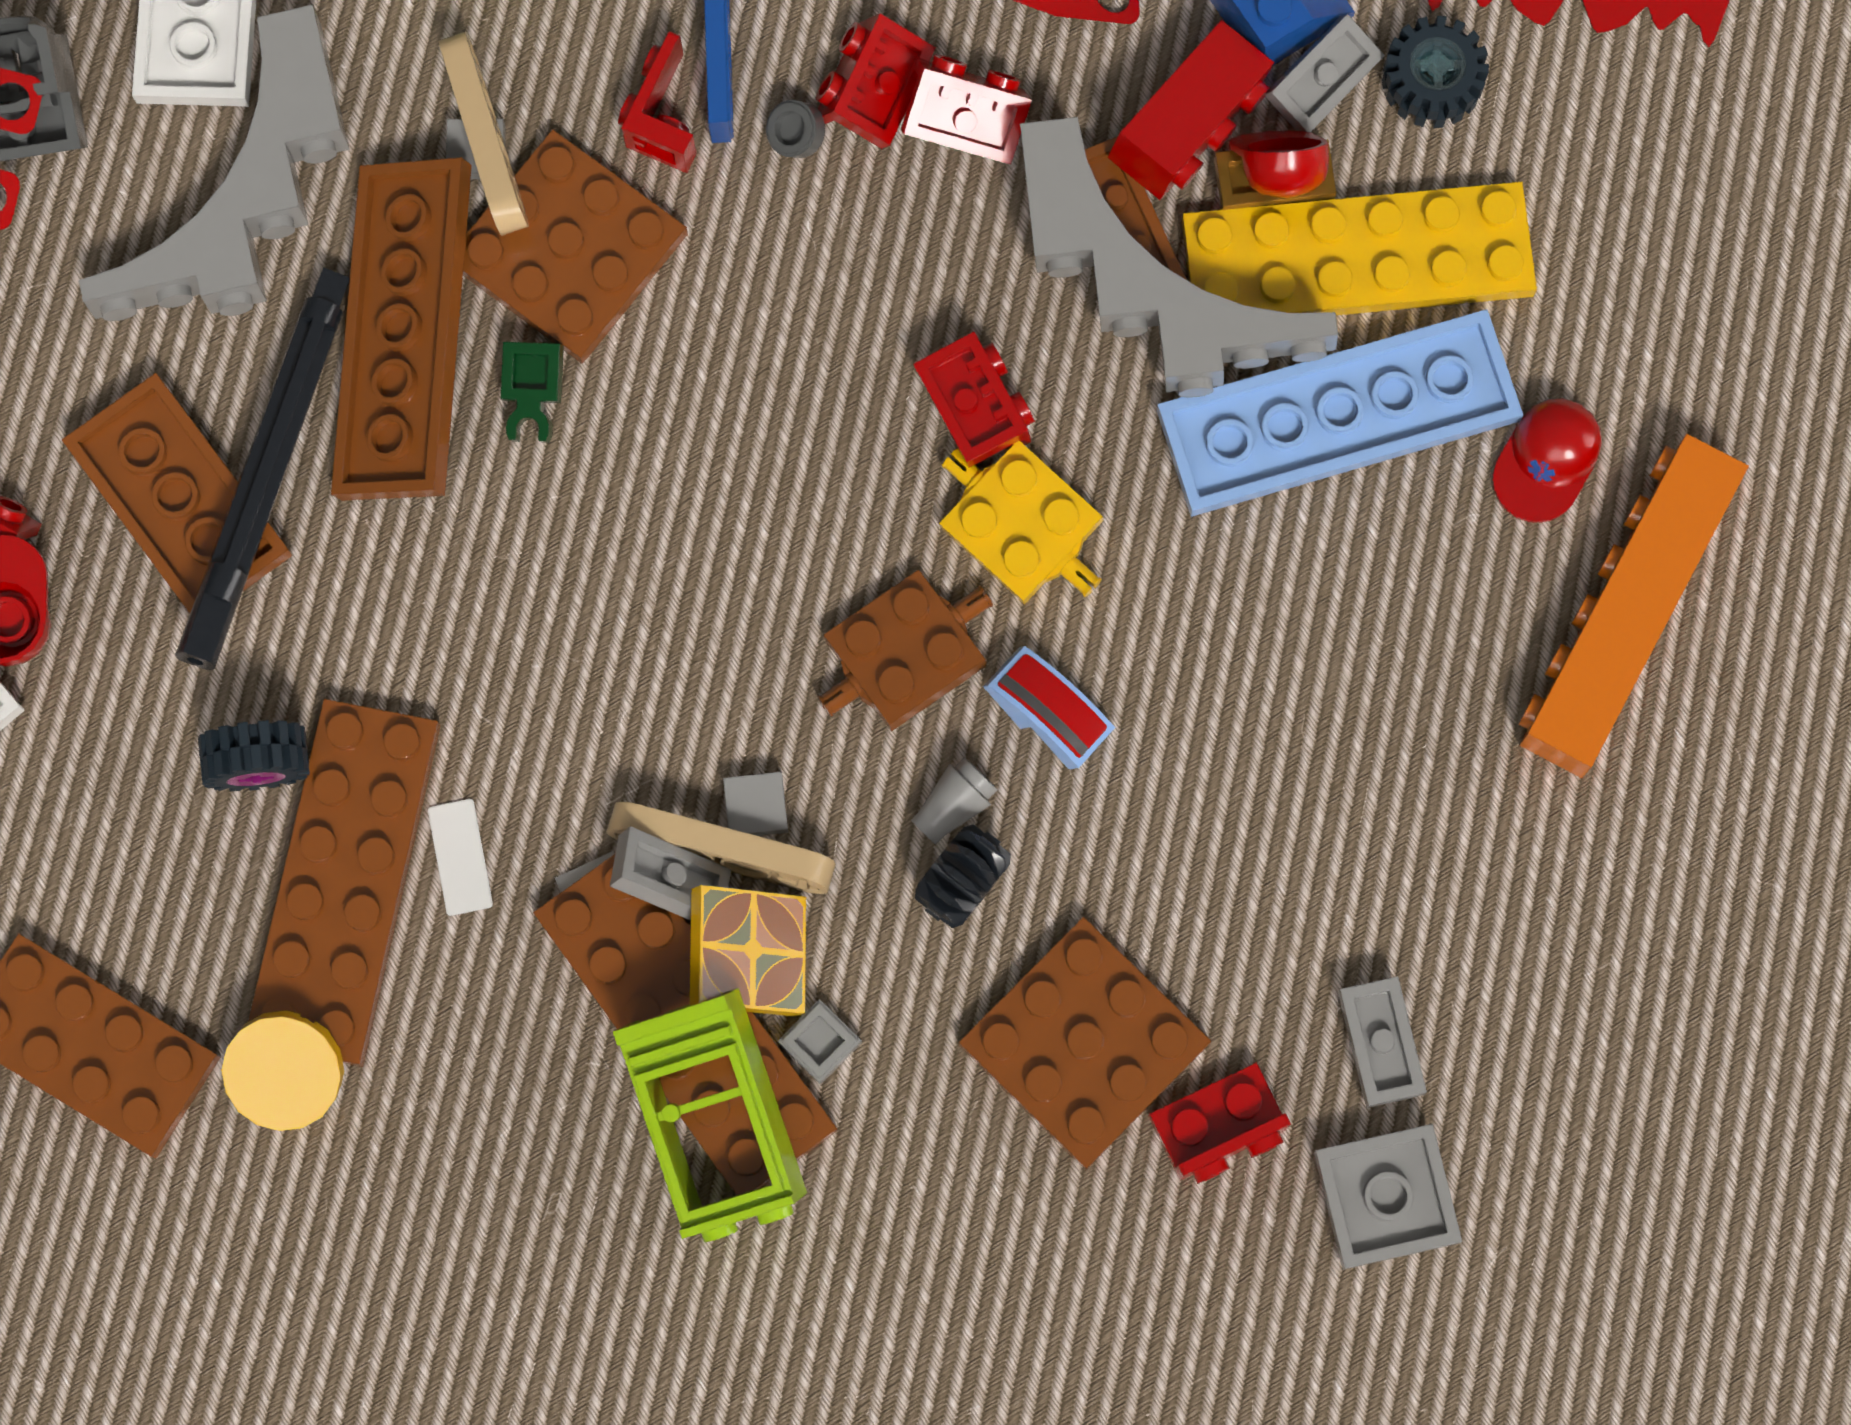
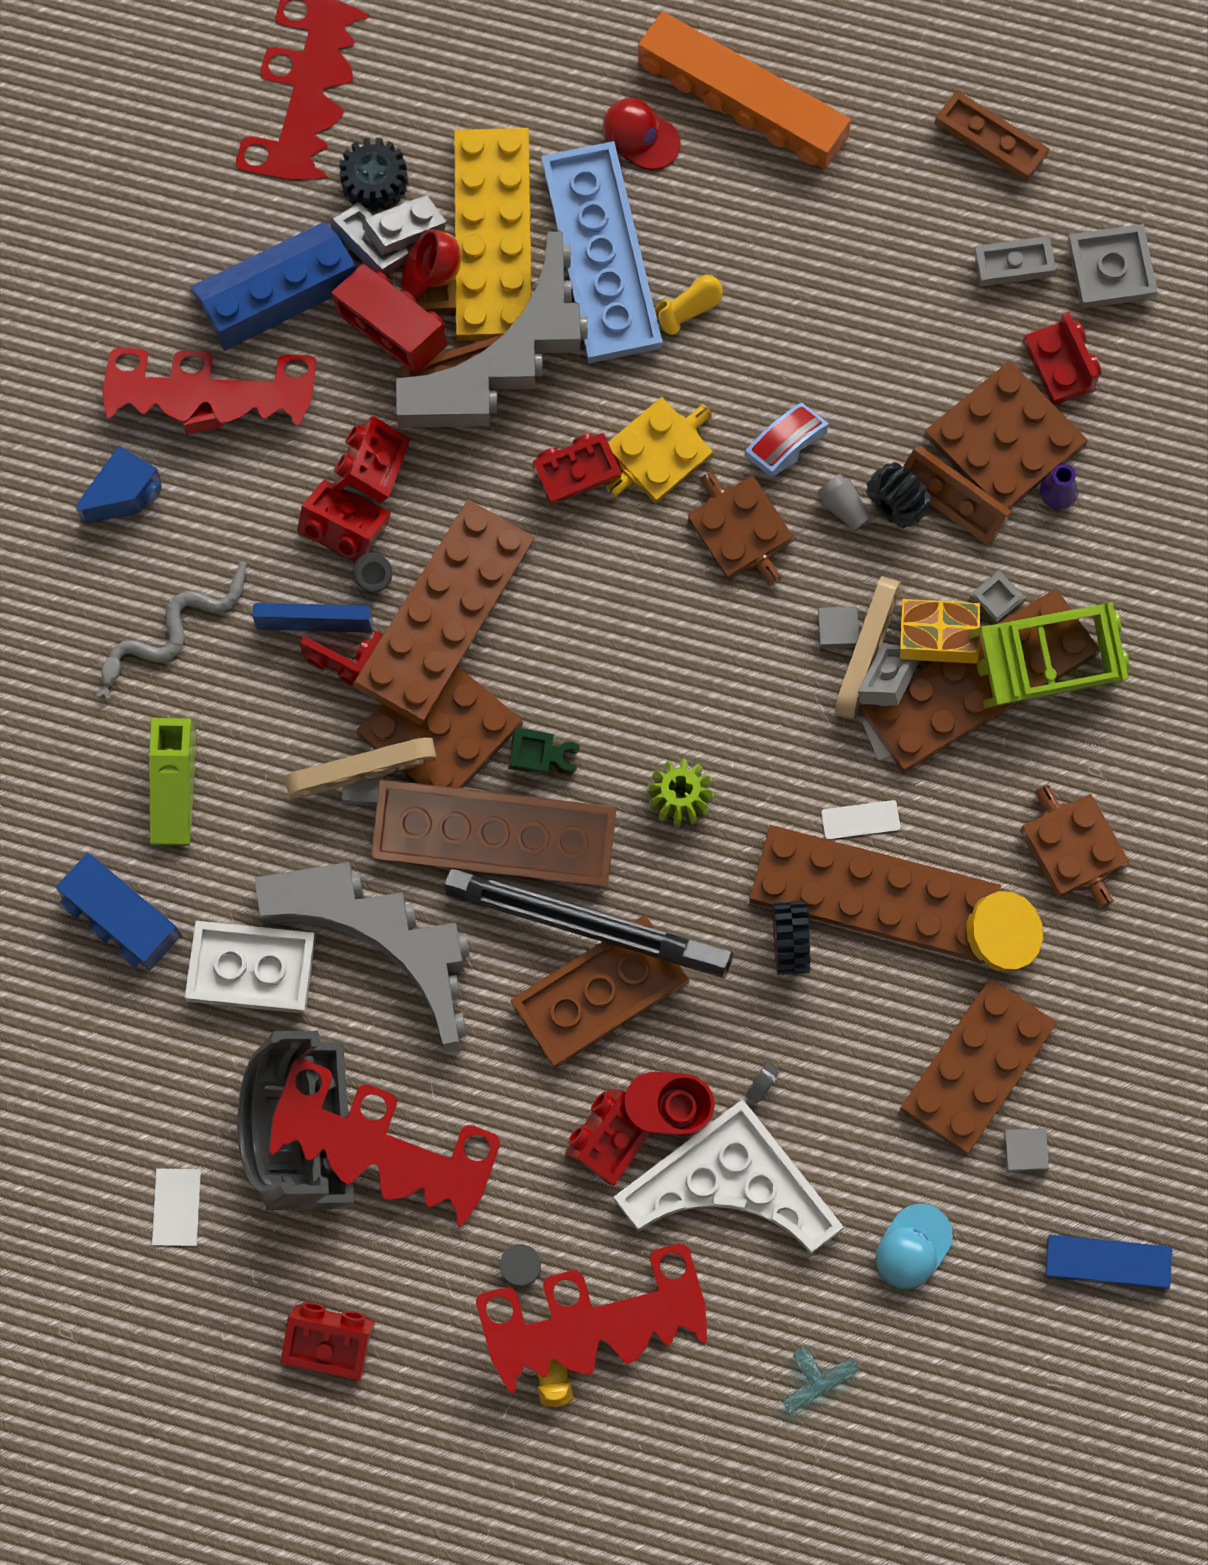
camera: 85 degrees left, 5 degrees down
(47, 733) = (762, 1083): none -> dark grey tile
(427, 1173) = (1074, 846): none -> dark orange plate
(463, 575) = (665, 791): none -> lime gear
(732, 229) = (443, 612): none -> dark orange plate
(976, 964) = (958, 496): none -> dark orange plate
(997, 1144) = (1060, 487): none -> dark purple cone
(1277, 566) = (699, 298): none -> yellow piece
(1352, 121) = (403, 224): none -> plate
(1597, 996) = (991, 136): none -> dark orange plate

